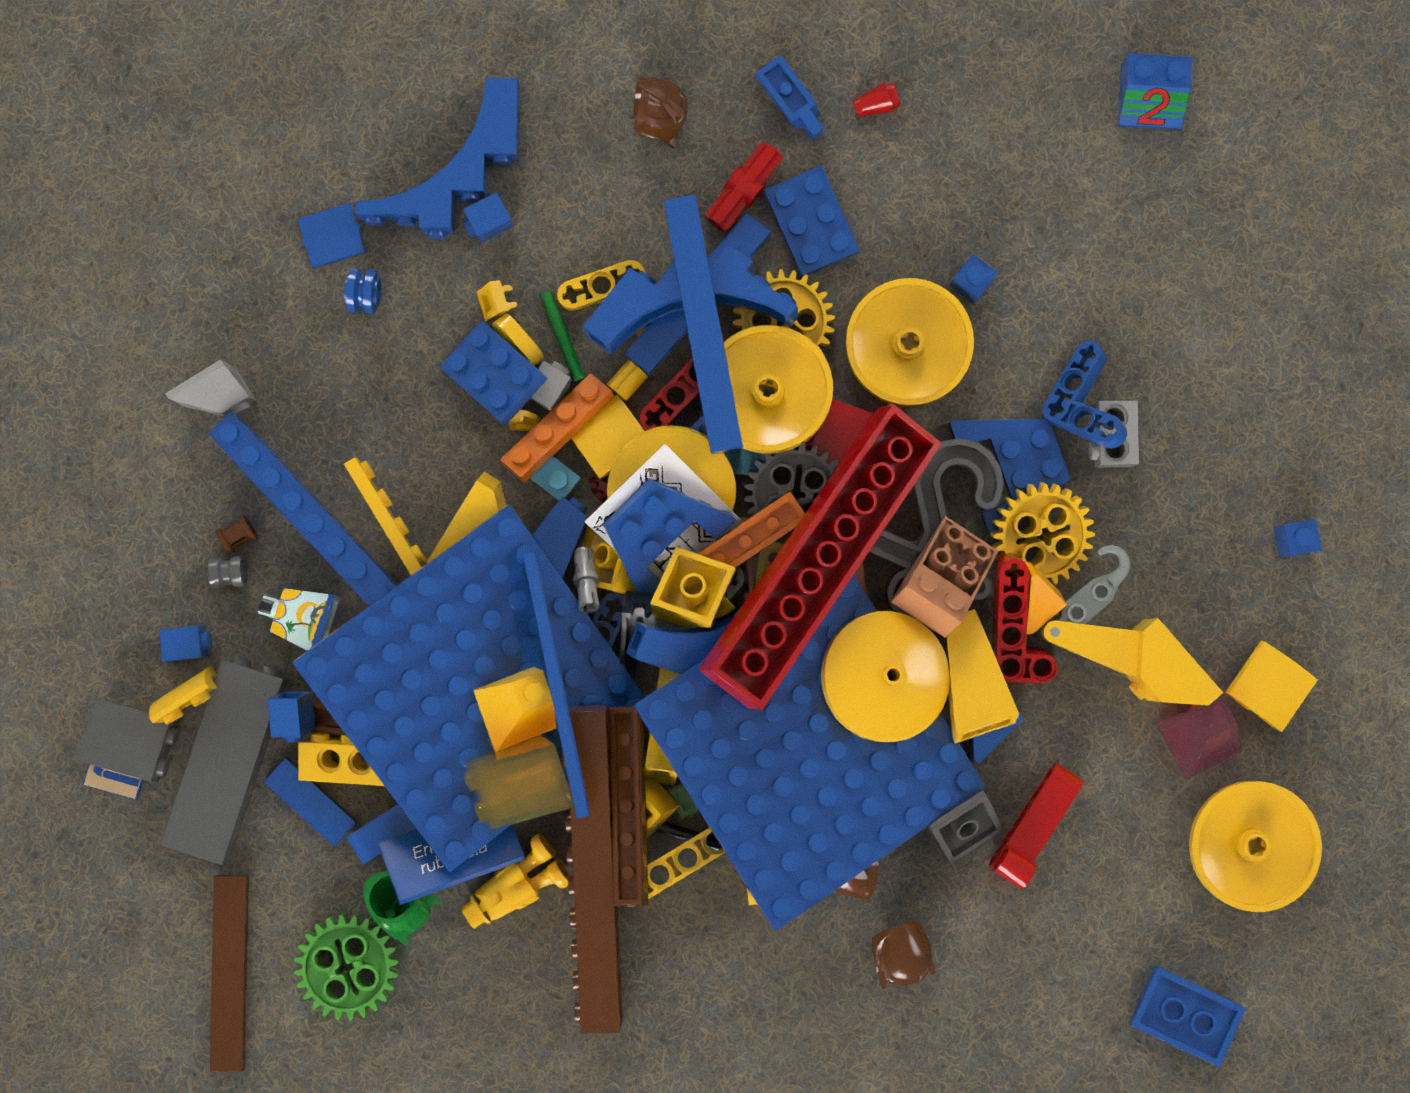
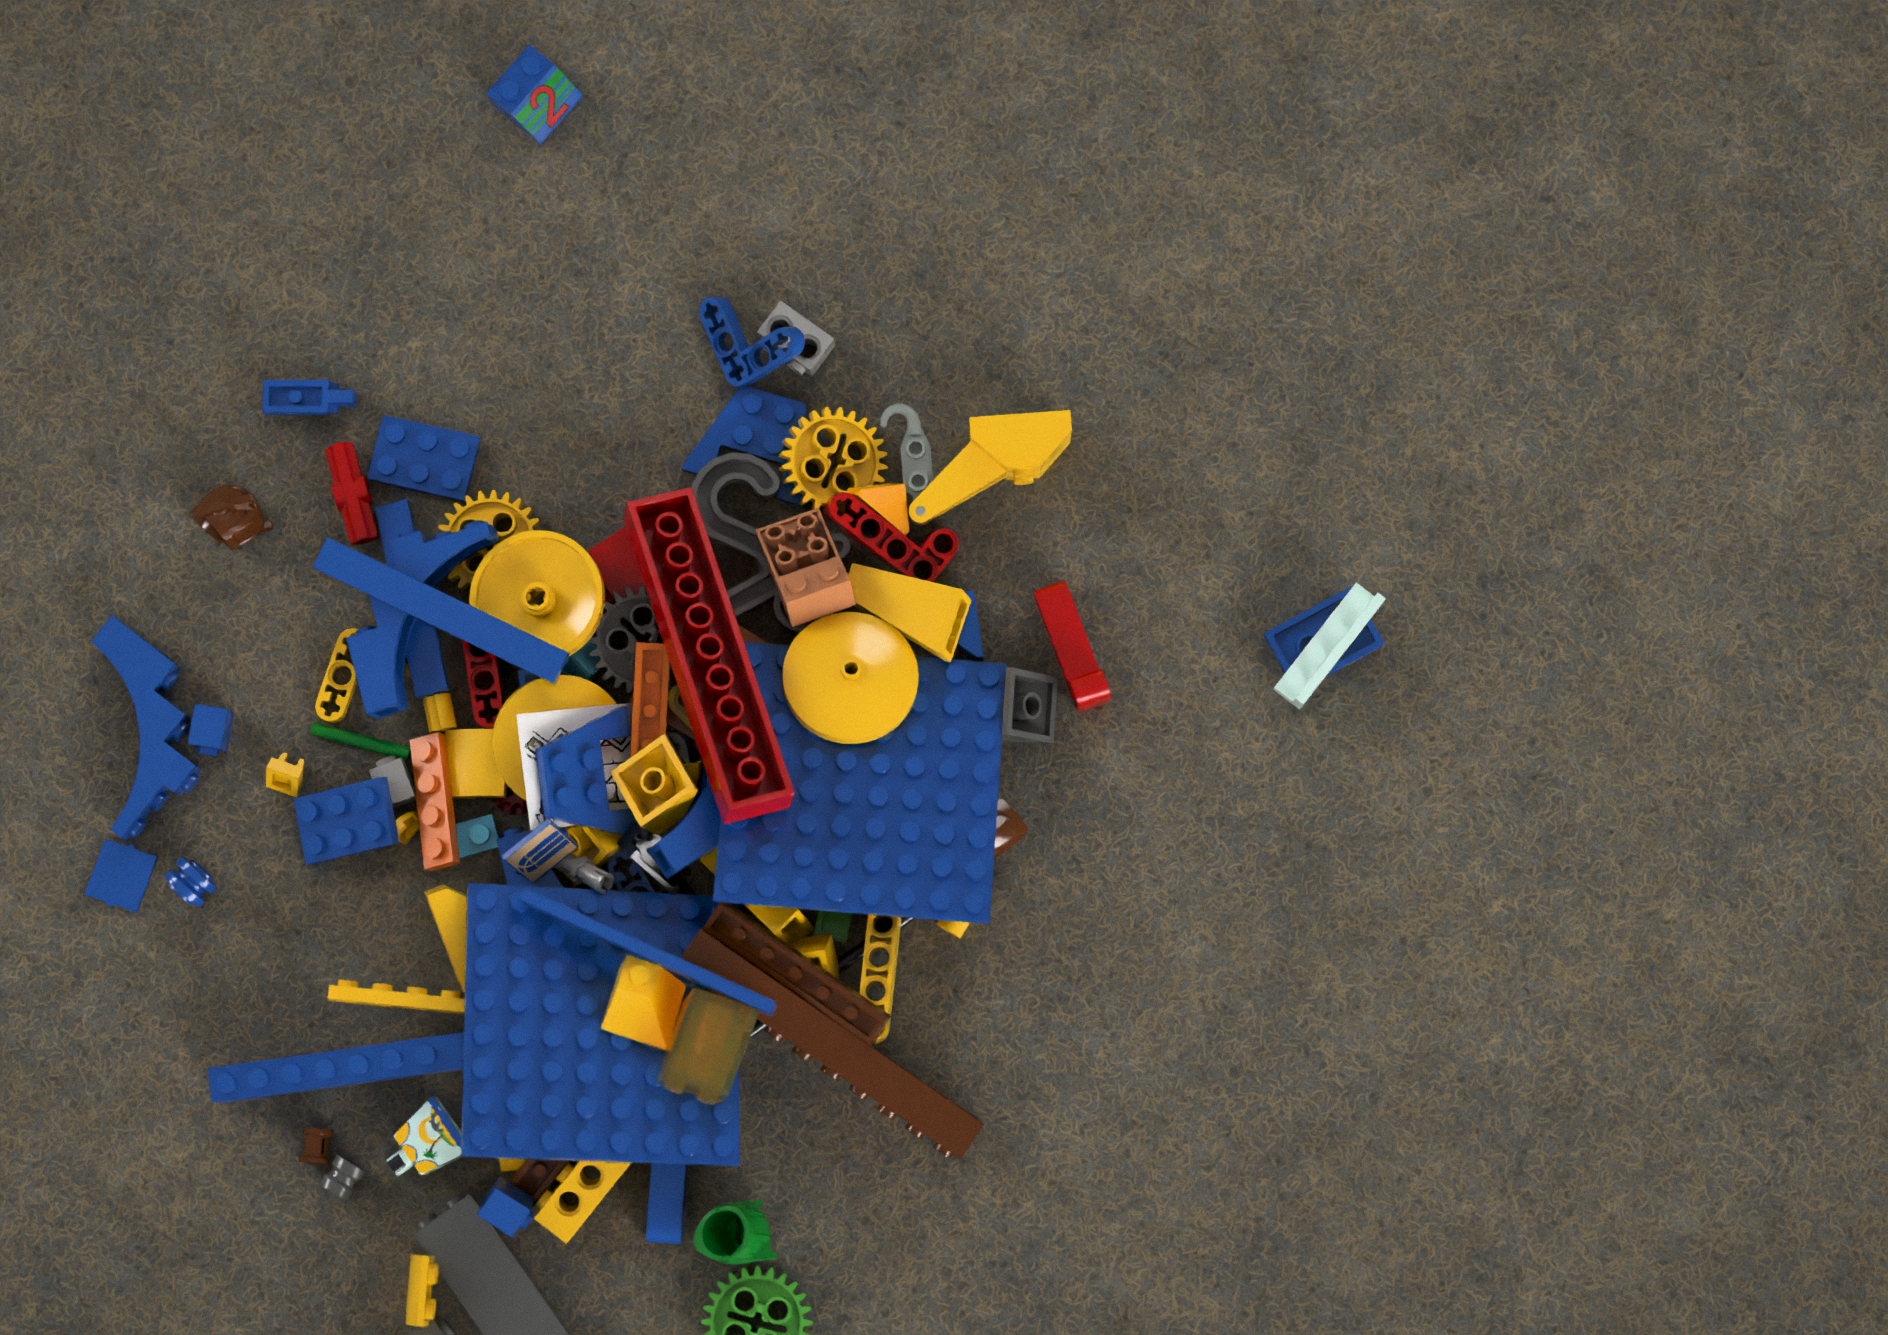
camera: 50 degrees left, 5 degrees down
(185, 643) = (376, 1259): blue brick -> none
(215, 391) = (180, 1072): light grey slope -> none
(310, 802) = (593, 1252): blue tile -> none
(419, 871) = (719, 1192): blue tile -> none
(511, 886) = (795, 1130): yellow piece -> none
(517, 338) = (330, 778): yellow beam -> none
(576, 539) = (540, 851): none -> piece
(877, 101) = (365, 327): red cone -> none
(902, 954) = (1094, 837): reddish brown helmet -> none
(909, 342) = (588, 452): yellow dish -> none
(973, 278) = (576, 359): blue brick -> none
(1187, 1028) = (1328, 645): none -> light aqua fence
(1201, 736) = (1101, 454): clear pink slope -> none
(1255, 846) = (1222, 478): yellow dish -> none
(1271, 685) = (1102, 366): yellow slope -> none
(1297, 538) = (995, 254): blue brick -> none

